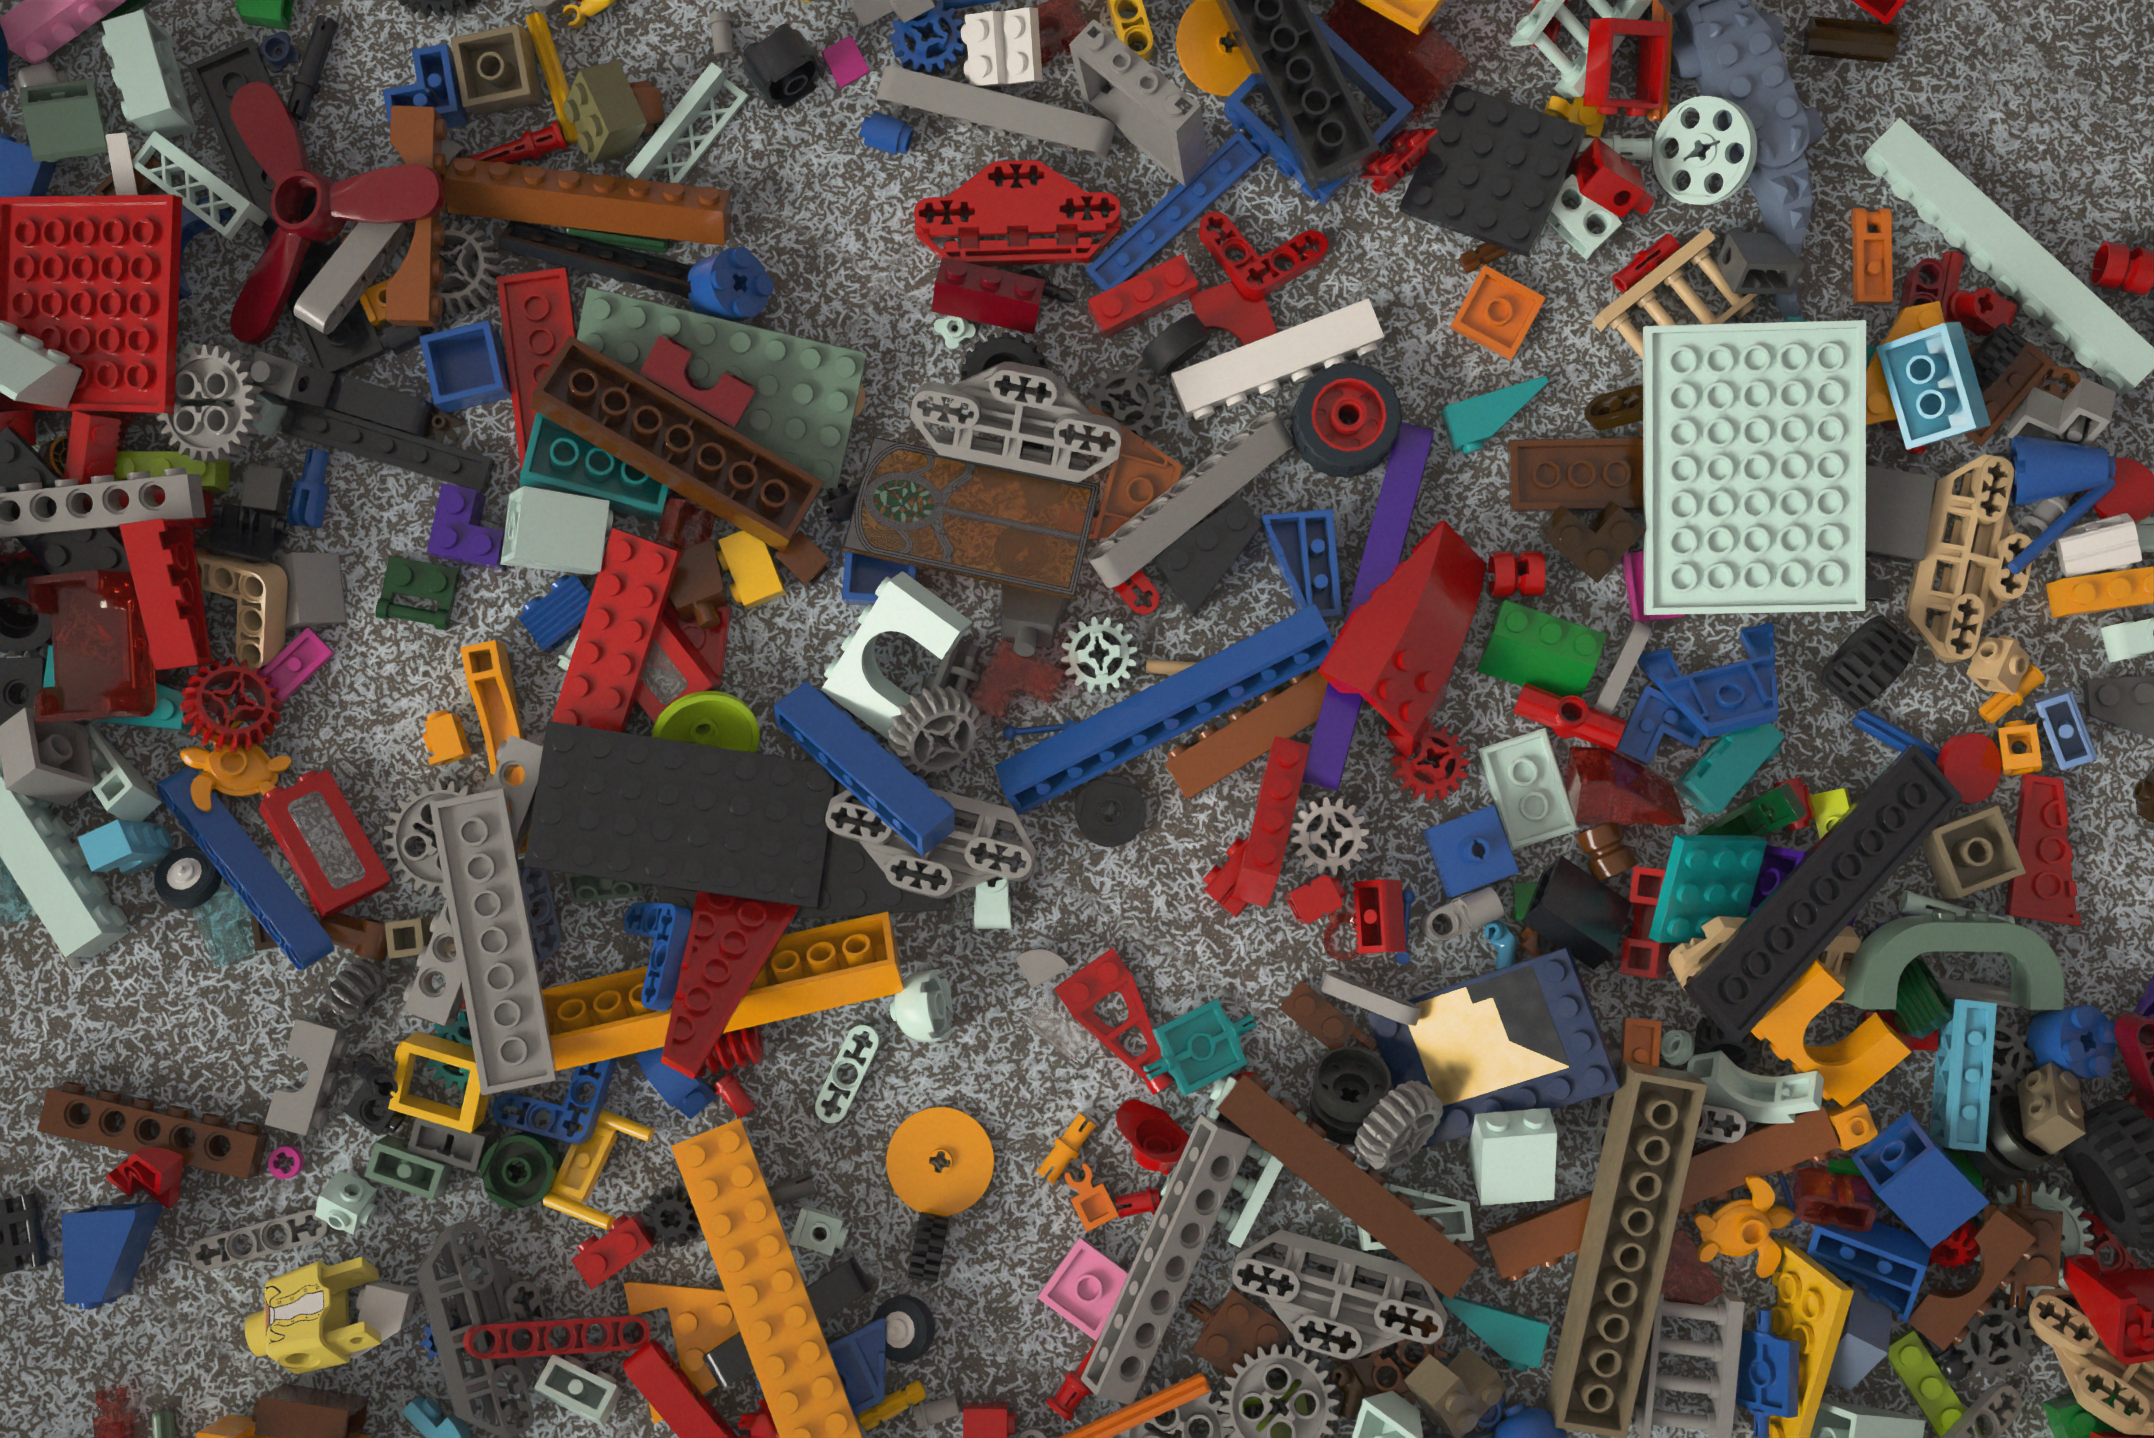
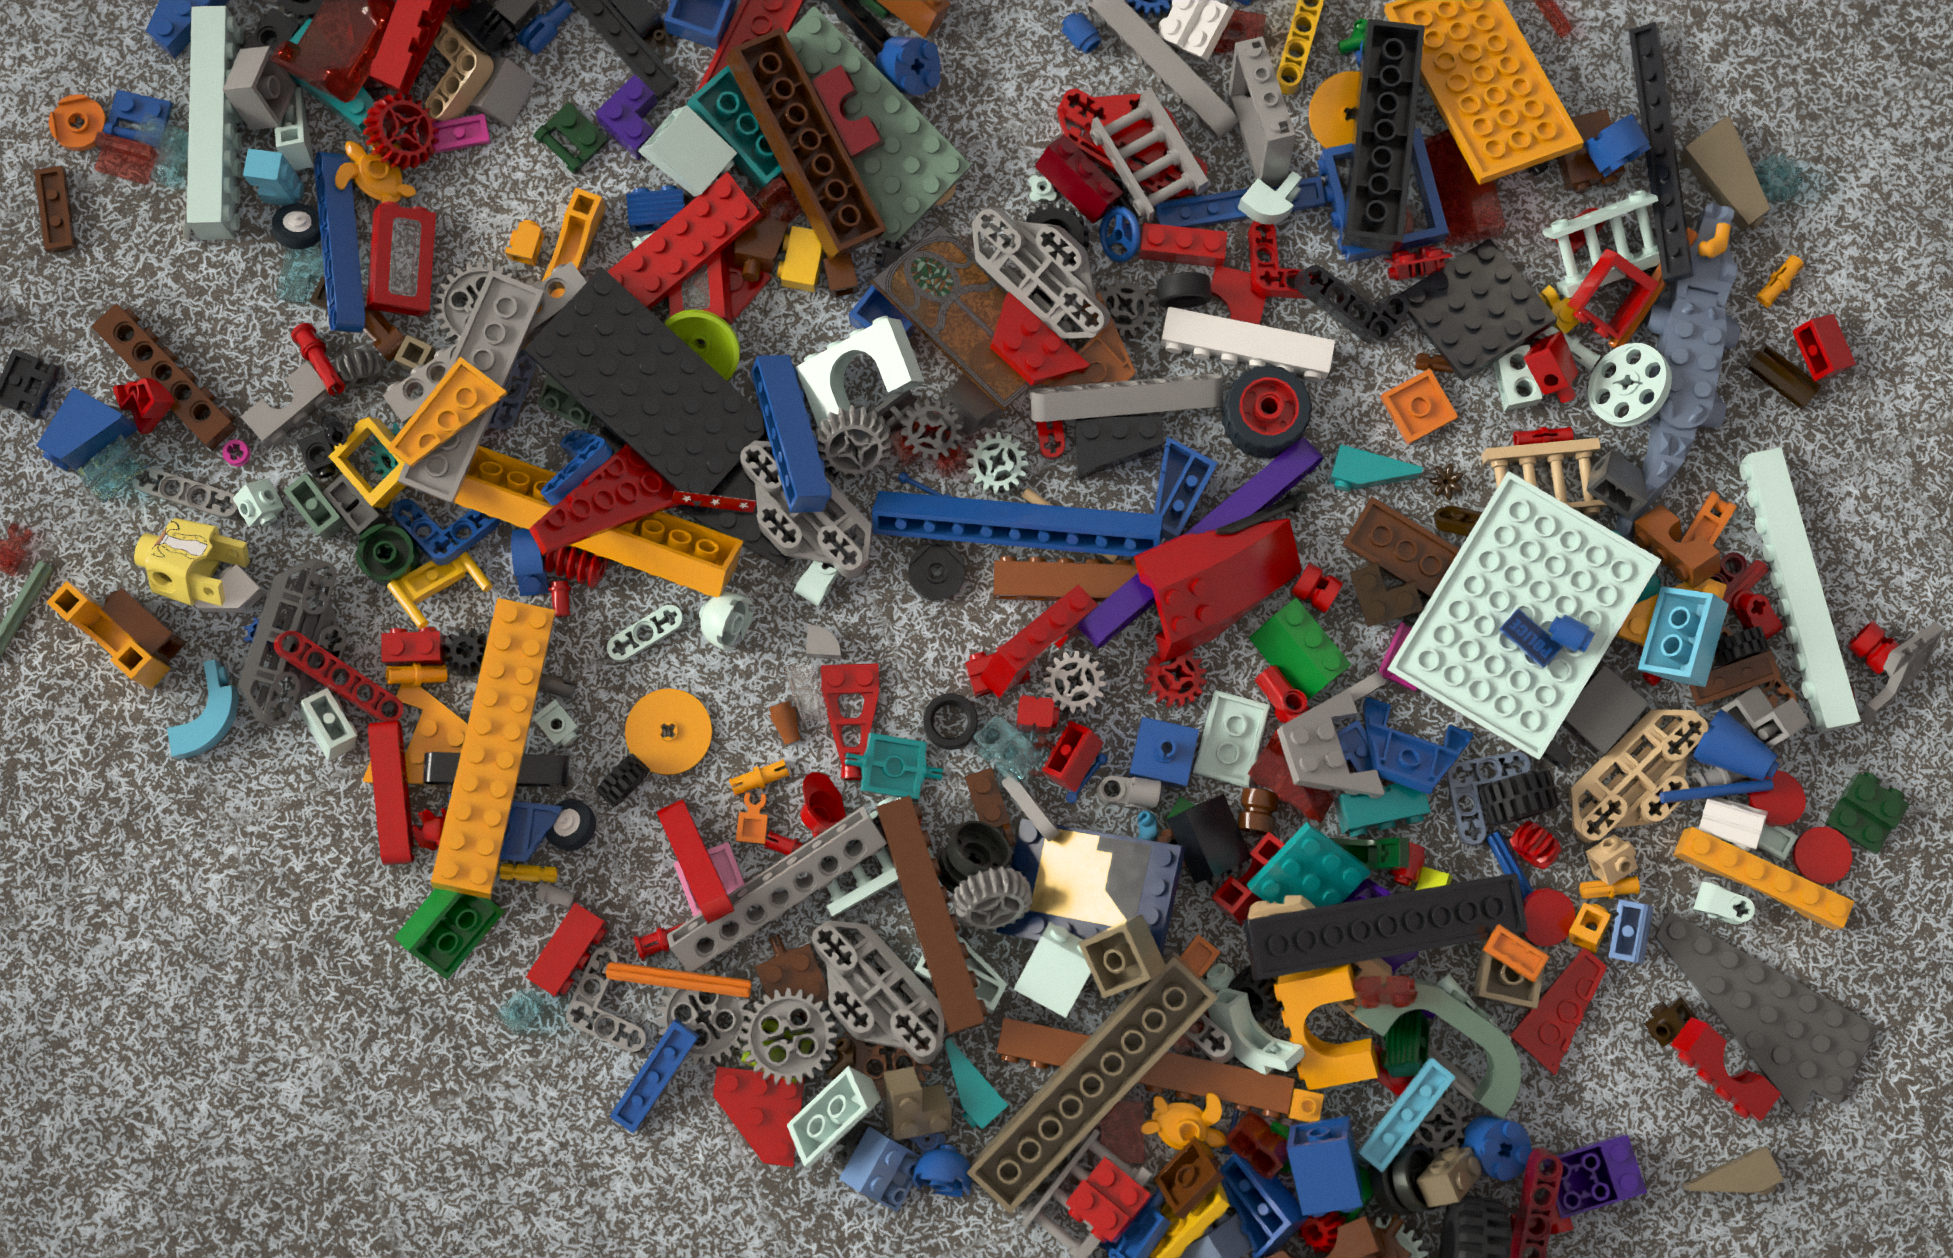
camera: 25 degrees right, 5 degrees down
(164, 1268) = (112, 468): none -> clear light blue brick
(297, 1002) = (314, 351): none -> red pin
(485, 985) = (449, 408): none -> light orange wing
(636, 1276) = (416, 674): none -> light orange pin
(830, 891) = (714, 501): none -> red sticker
(1009, 652) = (937, 438): none -> dark grey gear
(1046, 188) = (1163, 131): none -> light grey fence
(1055, 1071) = (785, 721): none -> dark orange cone
(1057, 508) = (1032, 346): none -> red wing
(1063, 1286) = (695, 861): none -> red beam
(1074, 322) = (1124, 233): none -> blue piece
(1208, 197) = (1267, 205): none -> light aqua brick
(1251, 972) = (965, 705): none -> black tyre
(1307, 950) = (1002, 743): none -> clear light blue brick
(1354, 246) = (1346, 300): none -> black beam
(1430, 500) = (1291, 501): none -> pearl dark grey sword
(1573, 379) = (1443, 477): none -> dark brown plant
(1583, 1107) = (1122, 956): none -> dark tan brick
(1634, 753) = (1316, 754): none -> light grey wing
(1718, 1361) = (1108, 1201): none -> red plate
(1779, 490) = (1530, 638): none -> slope
(1788, 1283) = (1189, 1177): none -> reddish brown plate
(1805, 683) = (1469, 789): none -> sand blue beam
(1821, 458) = (1571, 633): none -> blue brick
(1885, 956) = (1397, 992): none -> clear red hinge
(1887, 301) = (1689, 561): none -> dark orange arch
(1913, 700) = (1535, 845): none -> red gear
(1971, 831) = (1515, 953): none -> orange plate

